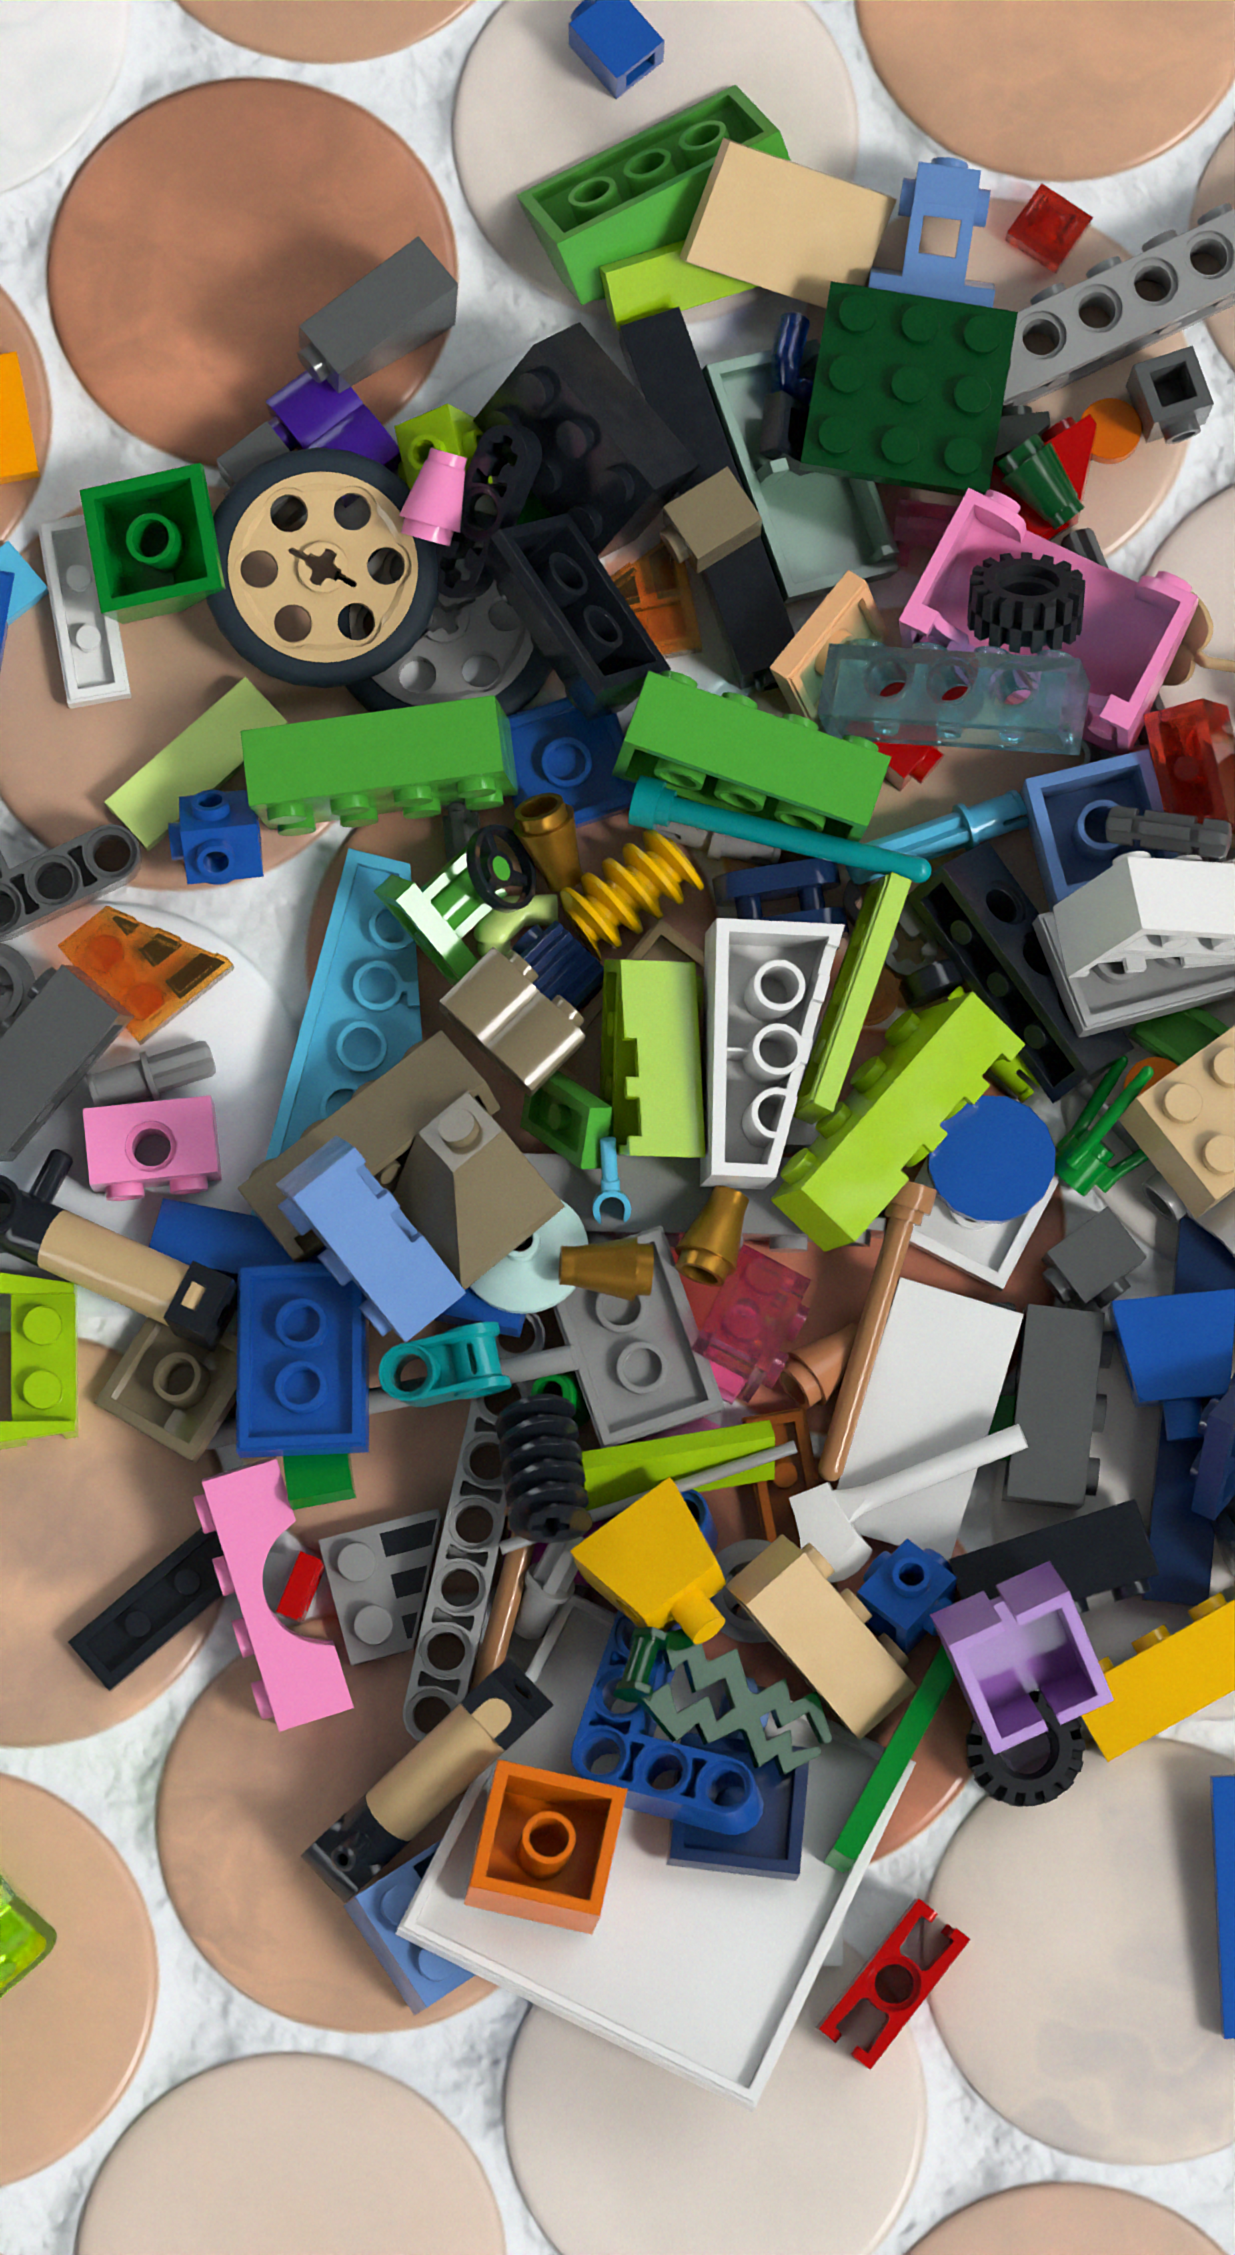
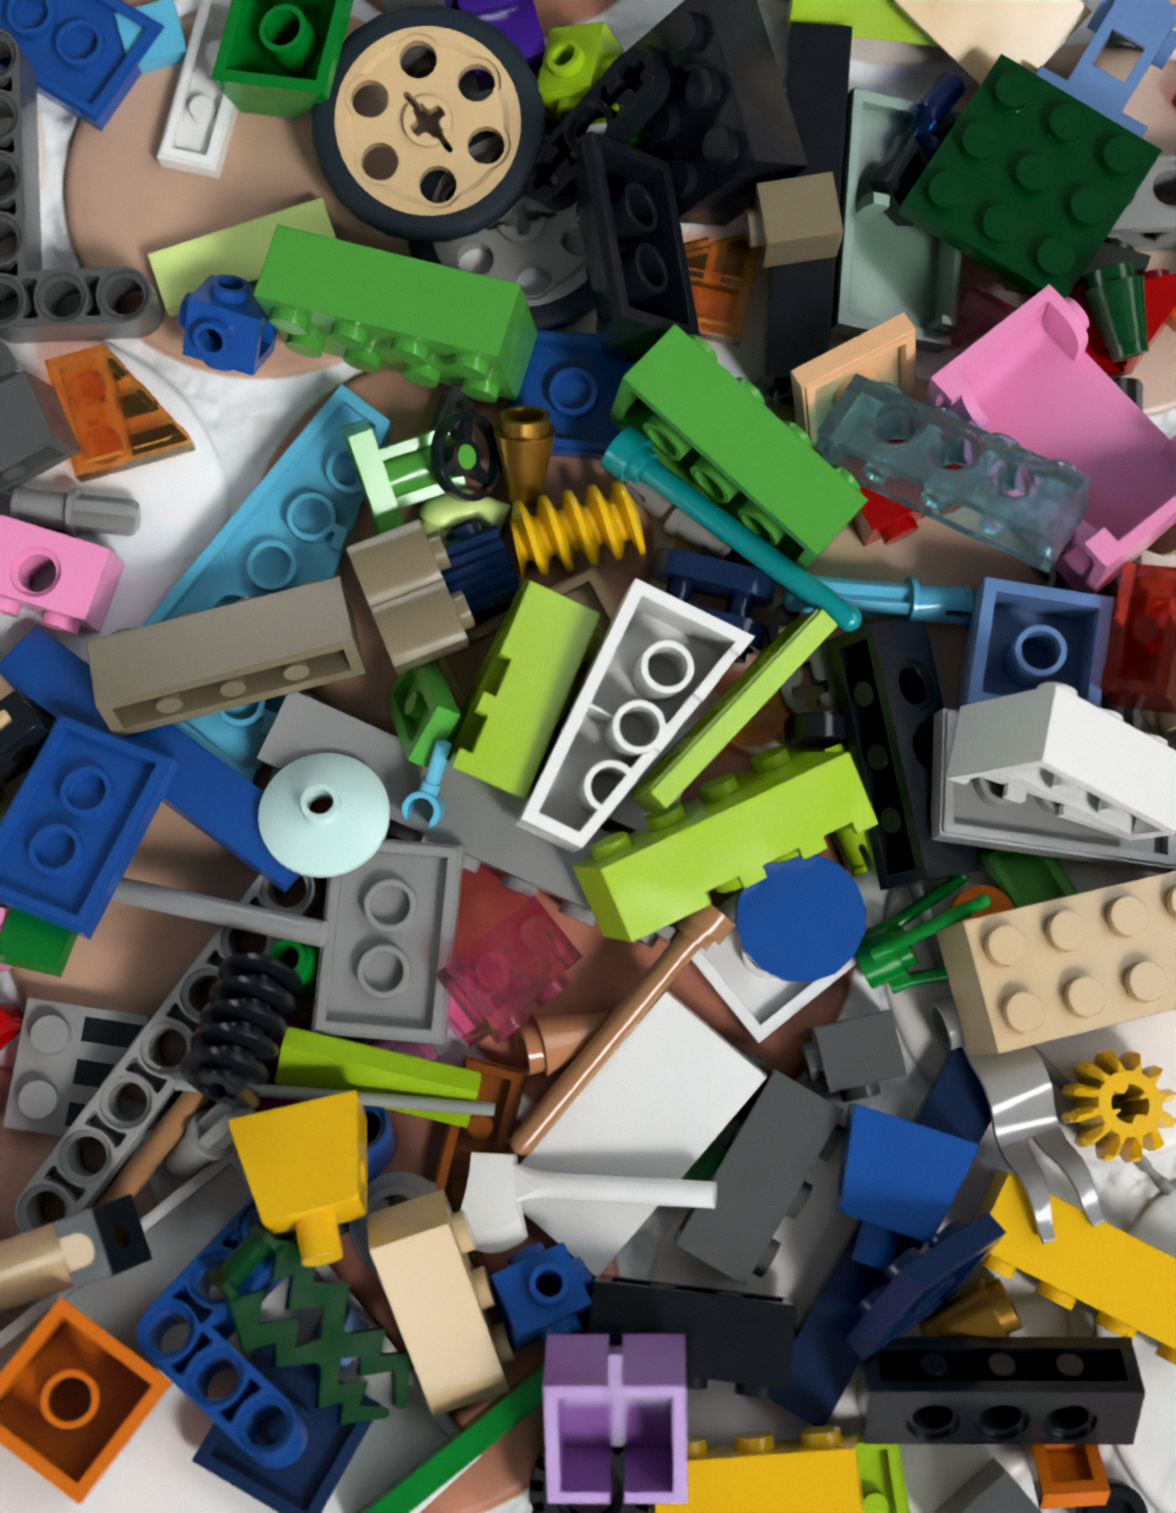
camera: 30 degrees right, 0 degrees up
(368, 1240) = (170, 740): medium blue wedge -> none
(436, 499) = (553, 96): bright pink cone -> none
(458, 1364) = (203, 894): teal piece -> none
(472, 1190) = (295, 737): dark tan slope -> none
(609, 1267) = (389, 864): pearl gold cone -> none
(713, 1240) = (503, 880): pearl gold cone -> none
(1026, 602) = (1058, 412): black tyre -> none
(1168, 832) = (1103, 681): dark grey axle -> none

